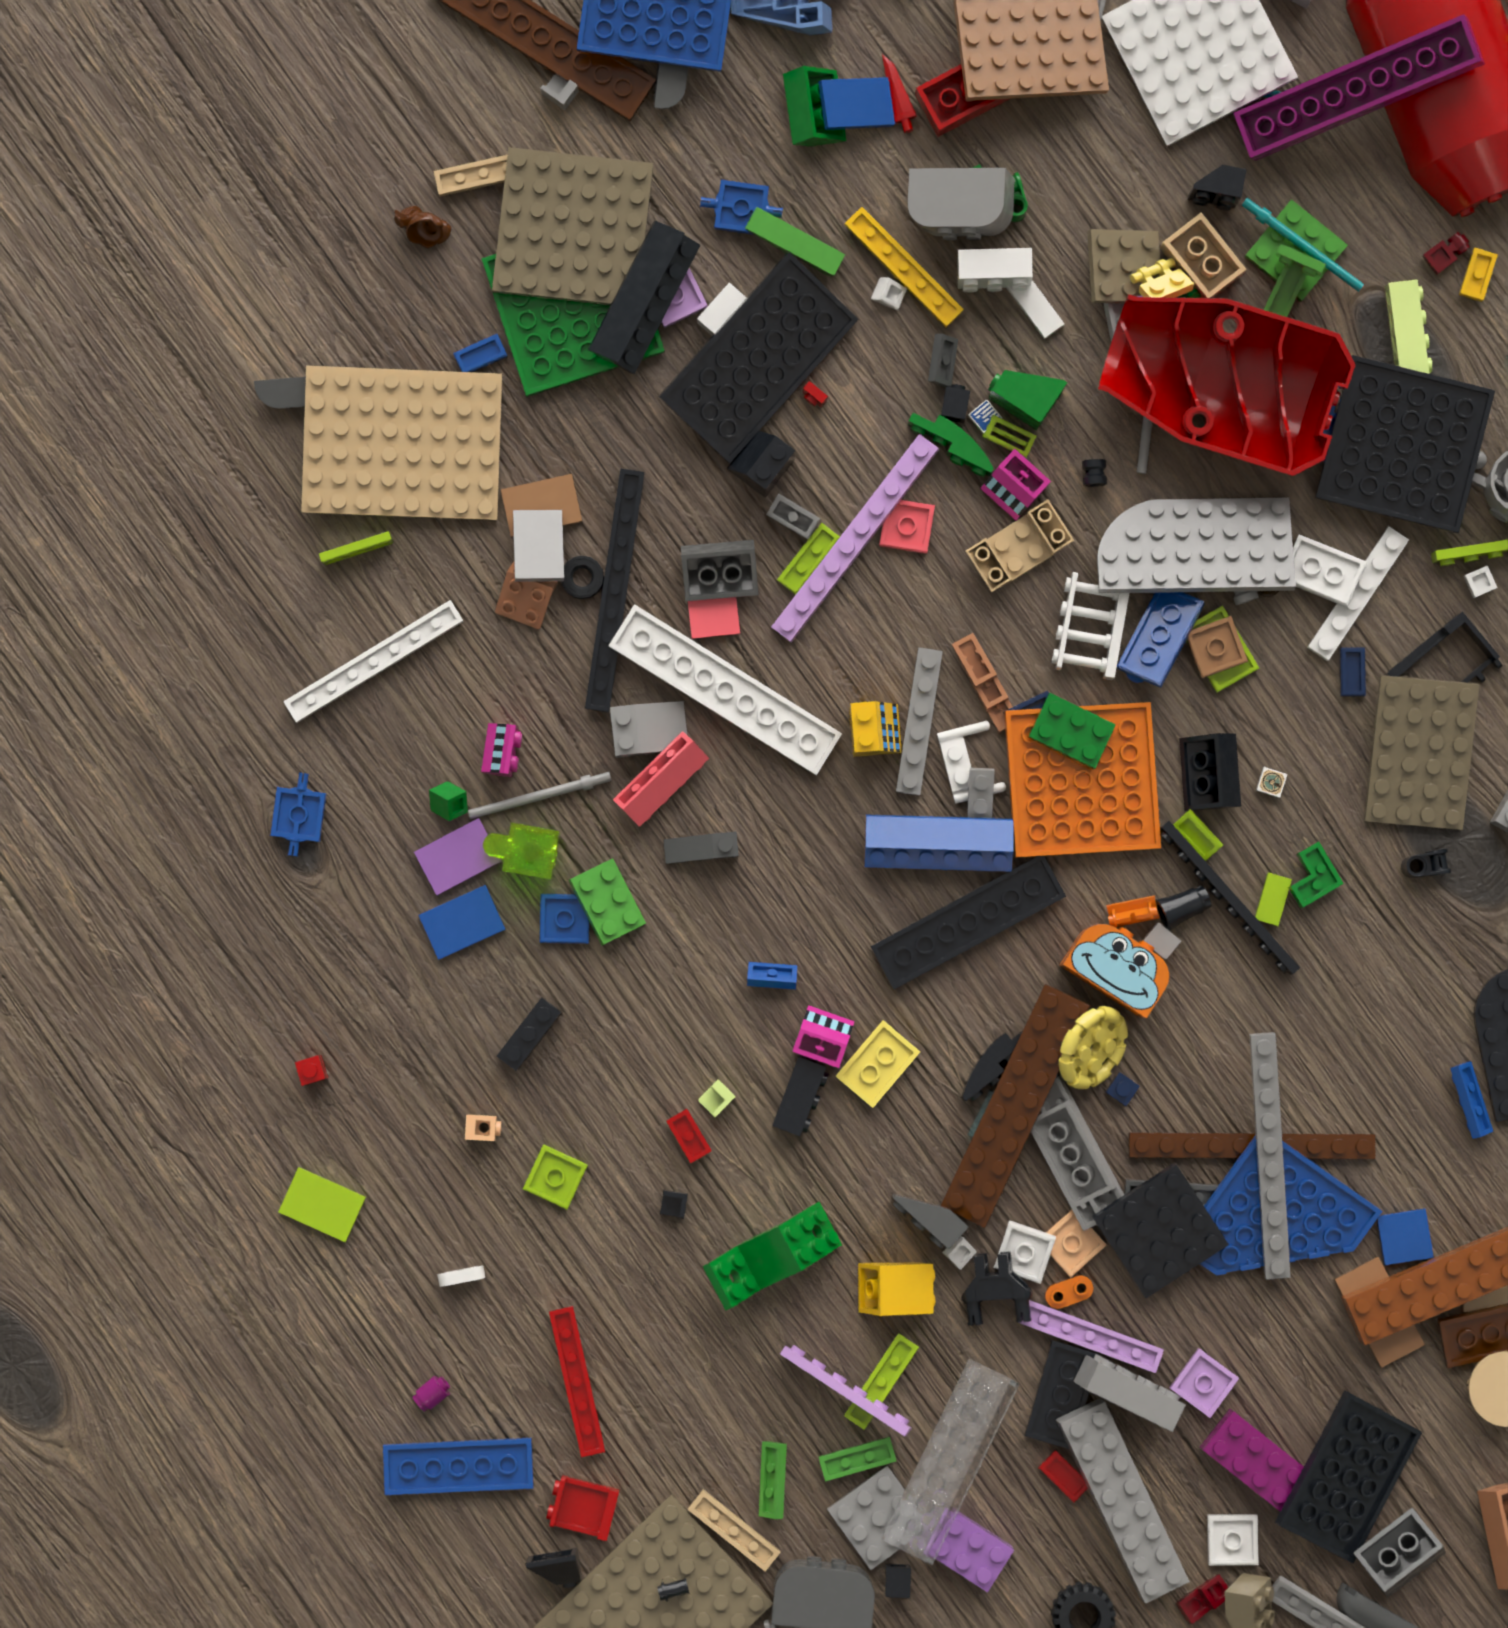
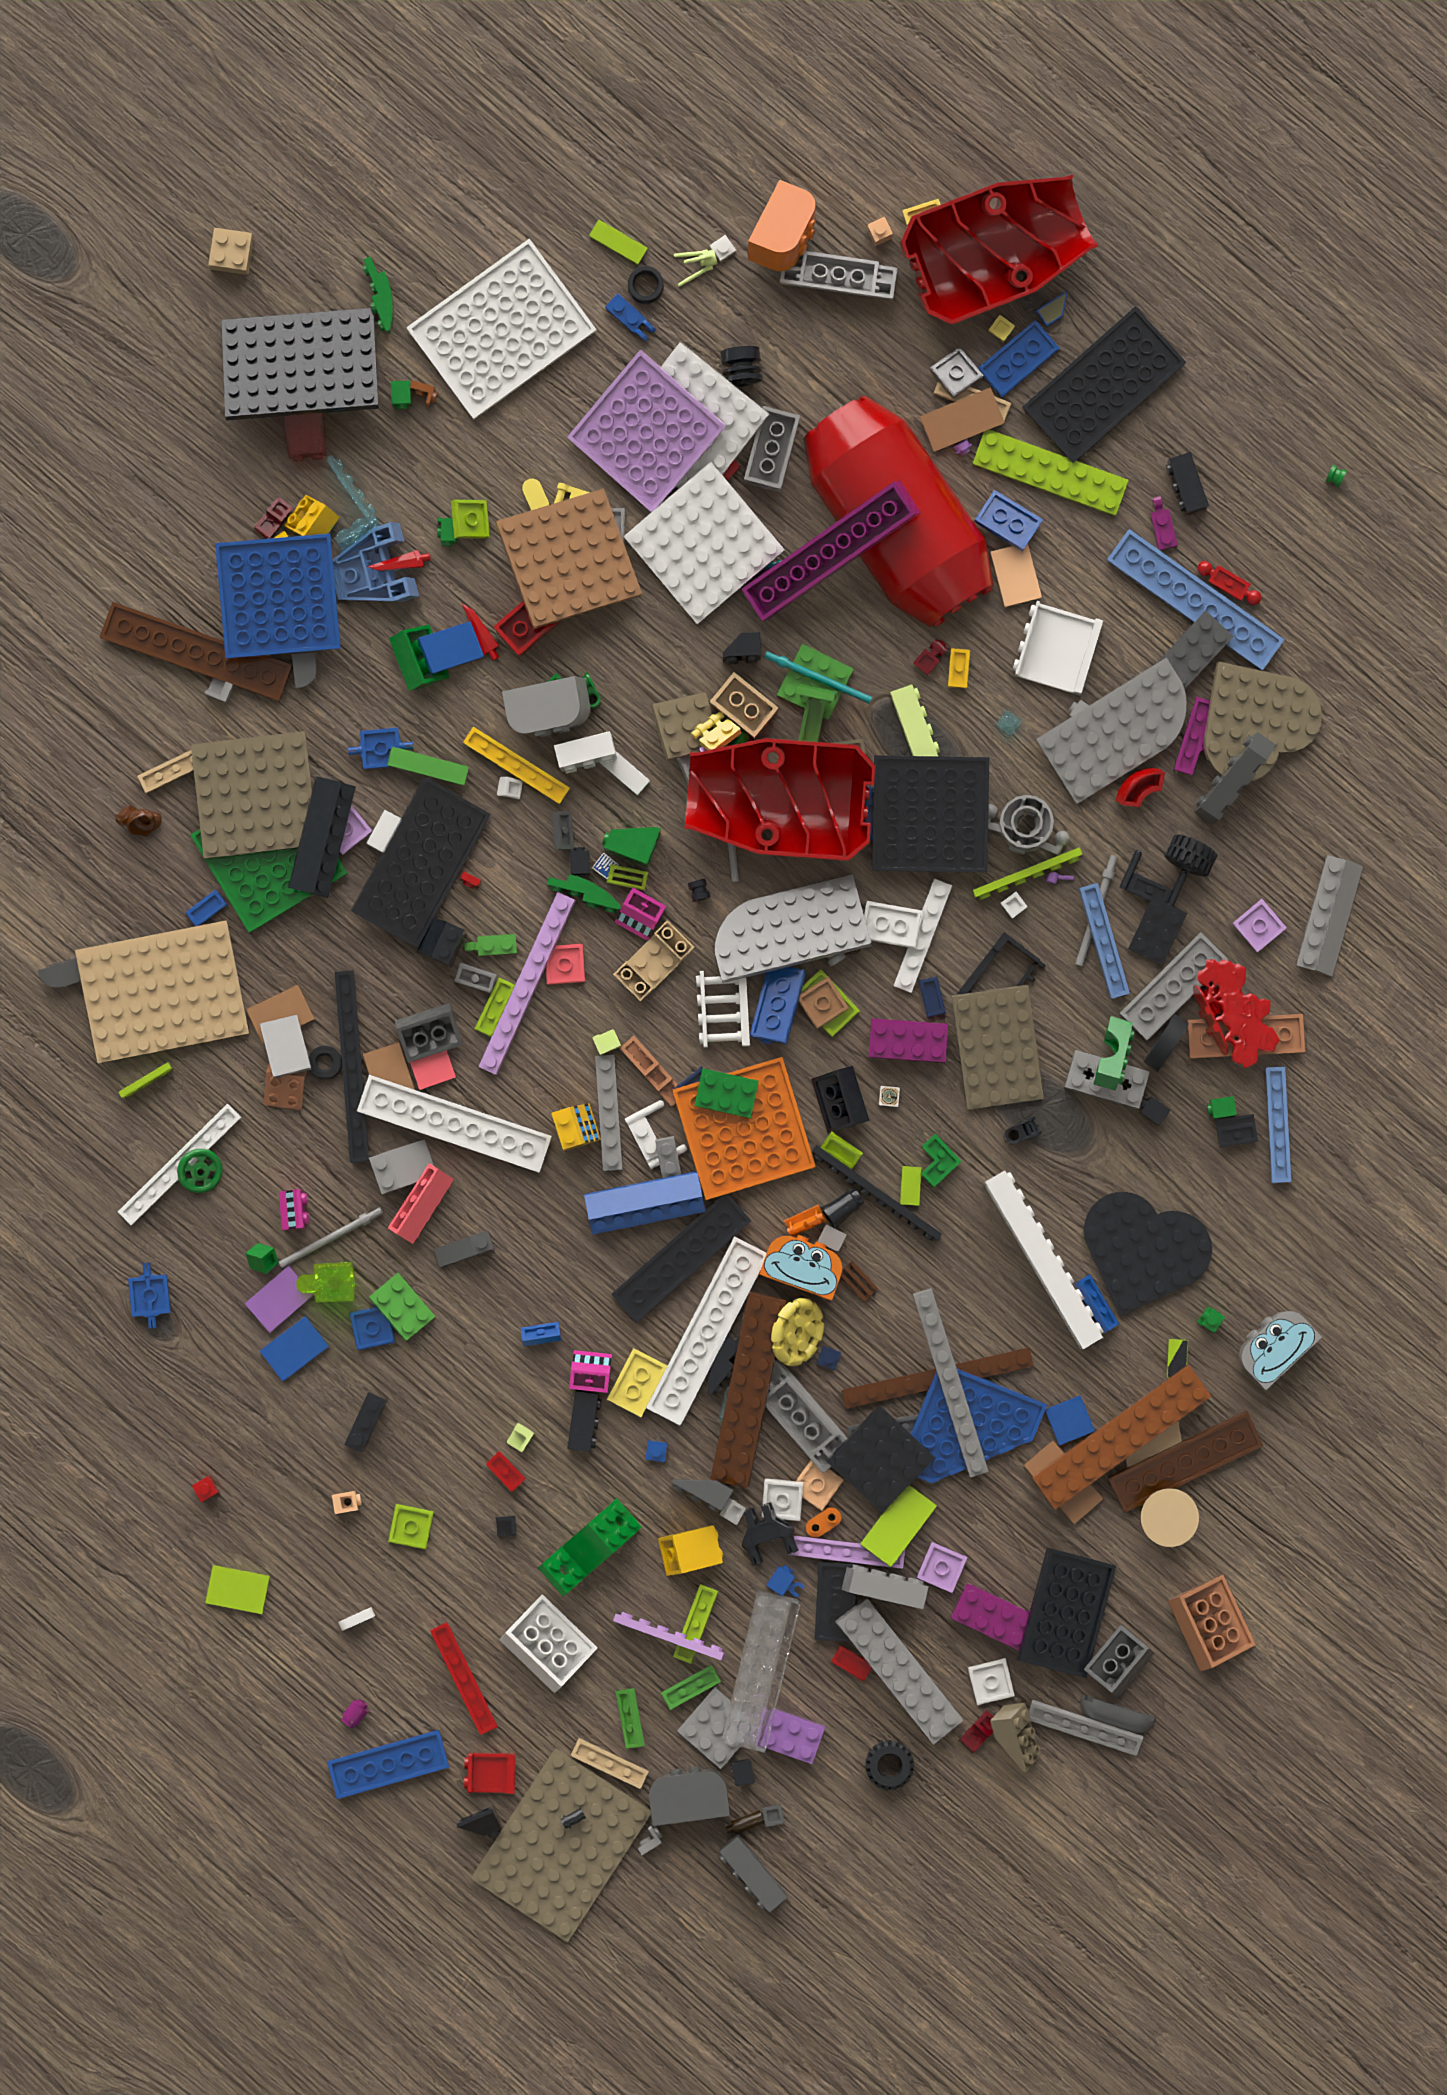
camera: 10 degrees left, 0 degrees up
(402, 655) = (208, 1184): none -> green plate
(661, 598) = (389, 1065): none -> medium nougat tile
(692, 1363) = (548, 1643): none -> white slope
(824, 481) = (493, 945): none -> bright green plate
(881, 1154) = (656, 1451): none -> blue plate
(936, 634) = (606, 1042): none -> yellowish green panel
(979, 1020) = (707, 1331): none -> white plate
(1001, 1353) = (782, 1580): none -> blue brick
(1162, 1319) = (898, 1525): none -> lime tile
(1191, 1020) = (869, 1293): none -> reddish brown tile
(1311, 718) = (908, 1040): none -> magenta brick
(1419, 1030) = (1042, 1259): none -> white brick

